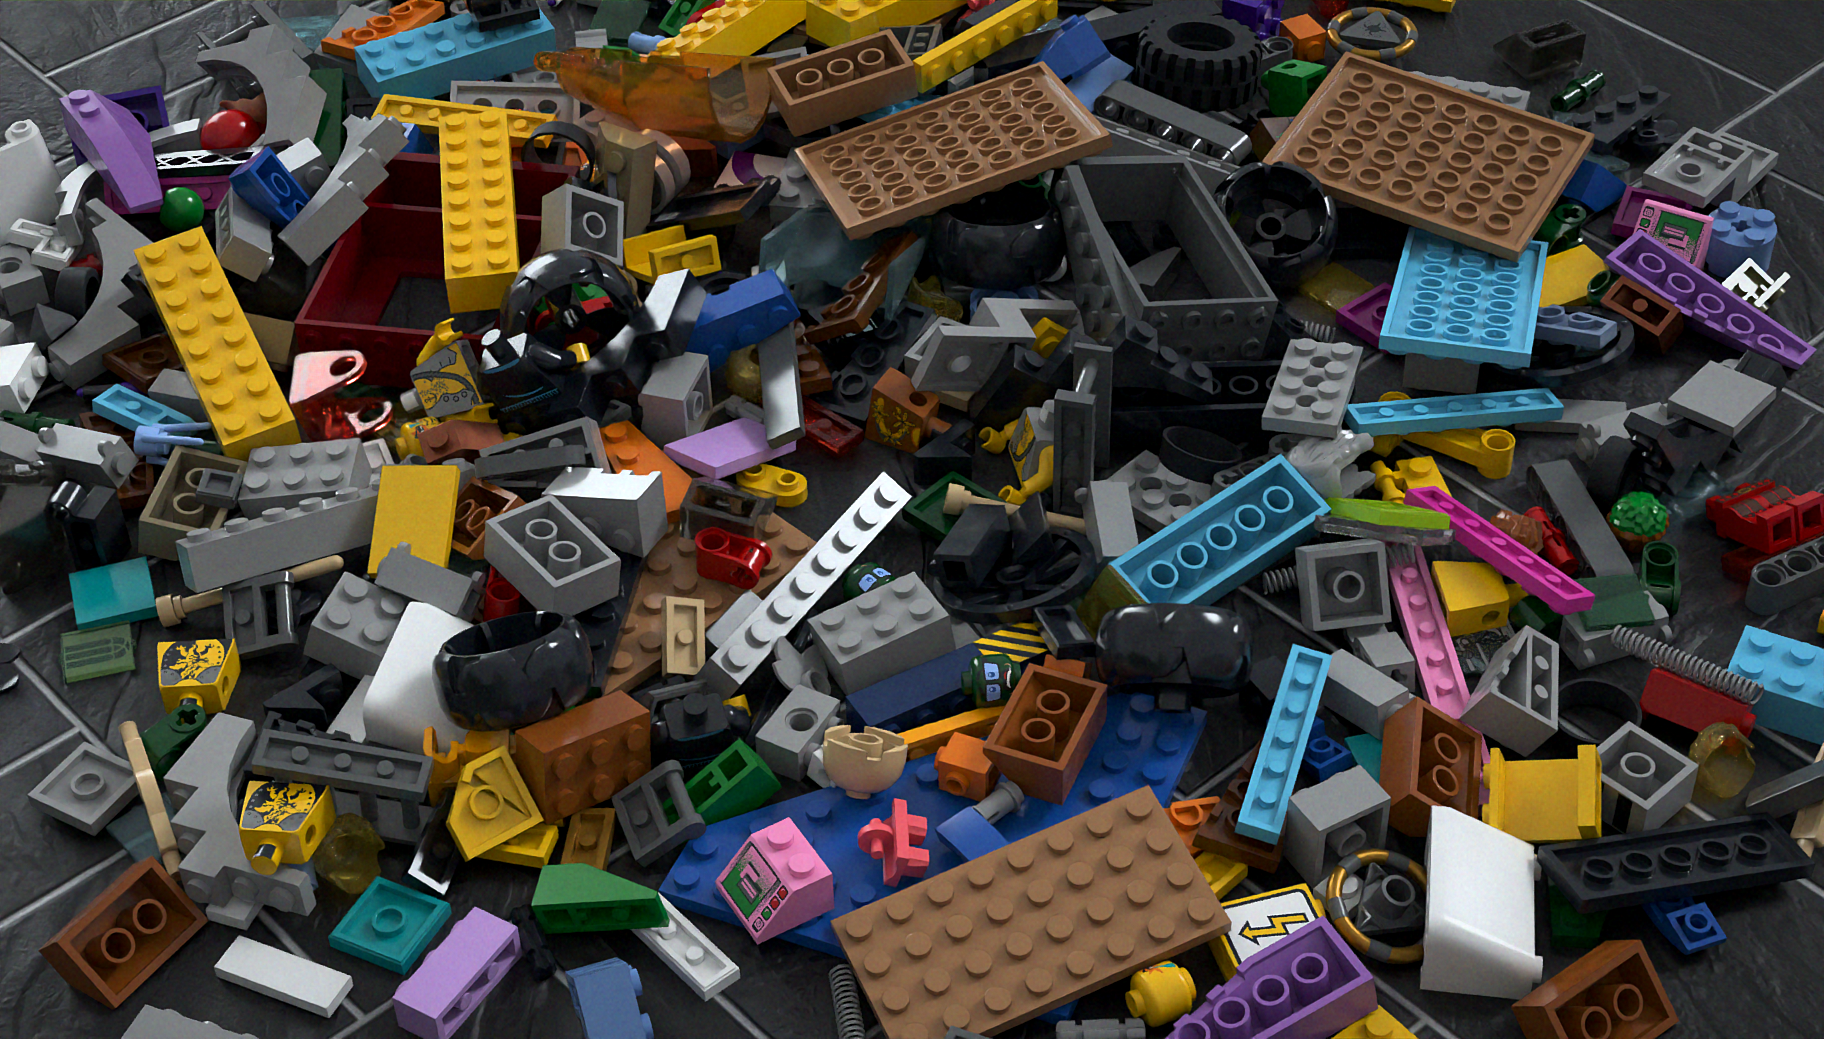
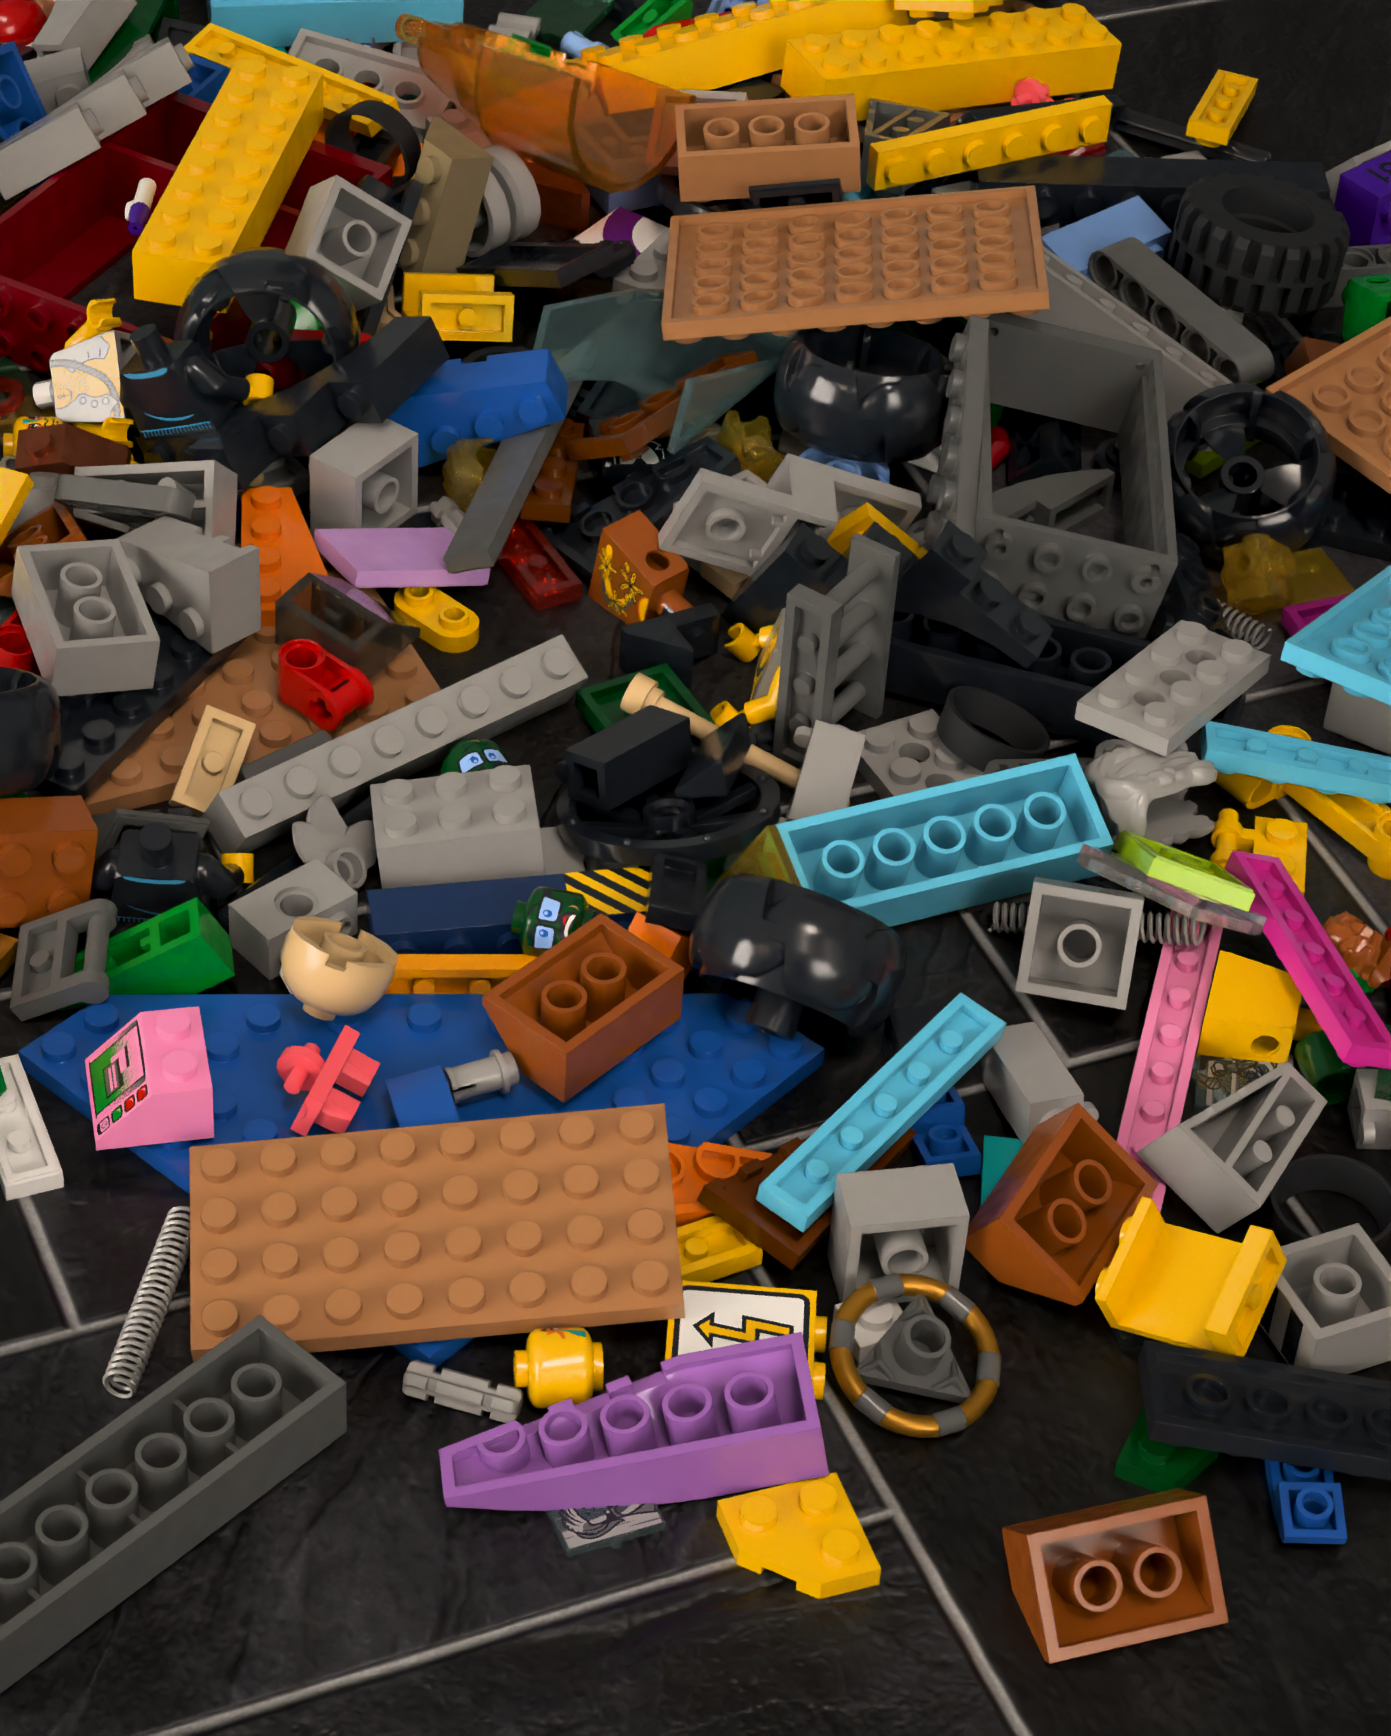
camera: 15 degrees right, 0 degrees up
(418, 245) = (138, 210): none -> piece
(877, 110) = (796, 193): none -> black slope
(965, 769) = (459, 1020): orange brick -> none
(1073, 49) = (1089, 187): blue wedge -> none
(1312, 292) = (1259, 574): none -> clear yellow brick
(1383, 652) = (1092, 1049): light grey piece -> none
(1478, 909) = (1023, 1390): white windscreen -> none

